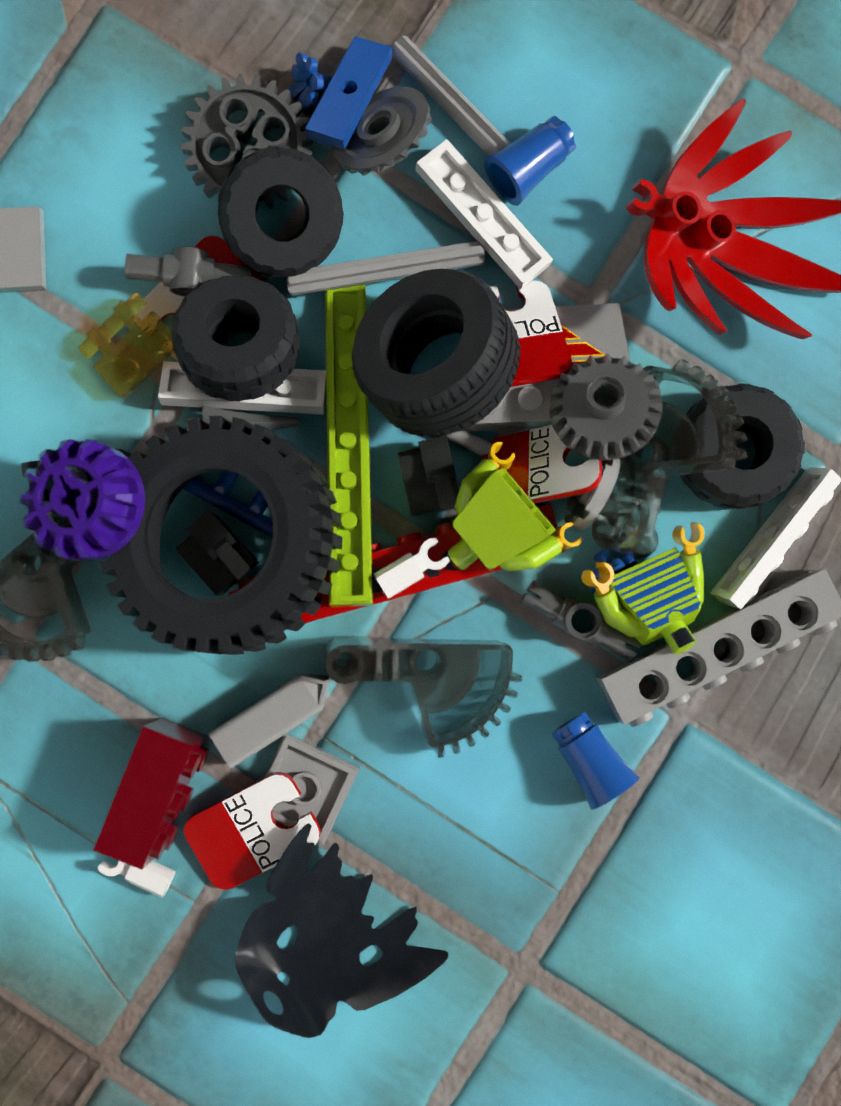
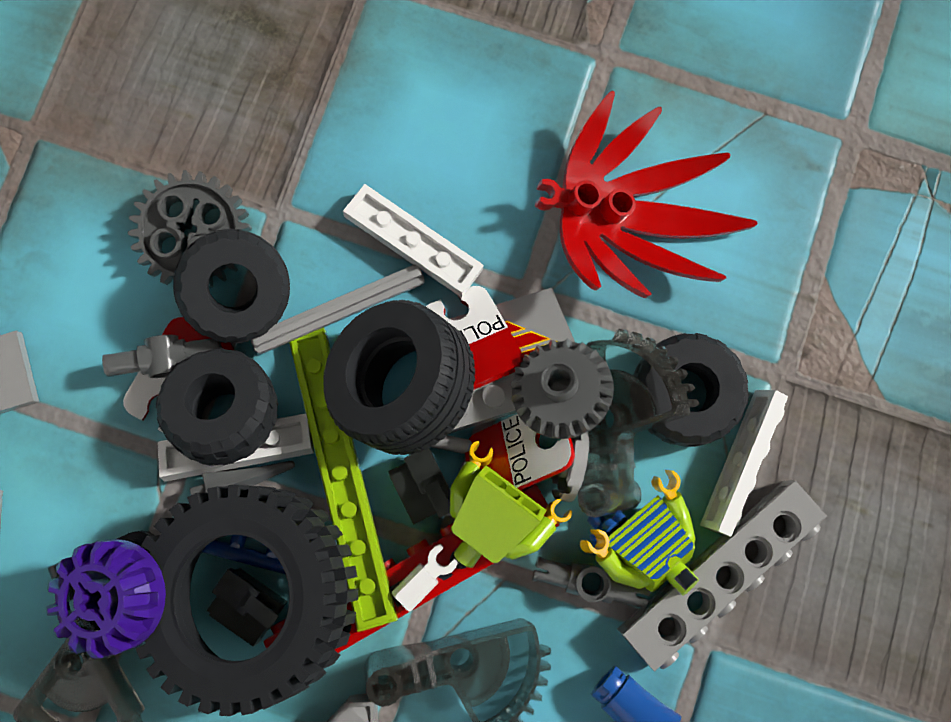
camera: 10 degrees left, 5 degrees down
(137, 353) = (131, 443): clear yellow plate -> none
(308, 81) = (232, 163): blue plant -> none
(349, 93) = (269, 166): blue tile -> none
(386, 131) = (305, 191): dark grey gear -> none
(448, 96) = (360, 148): light grey axle -> none
(529, 159) = (441, 183): blue plant -> none

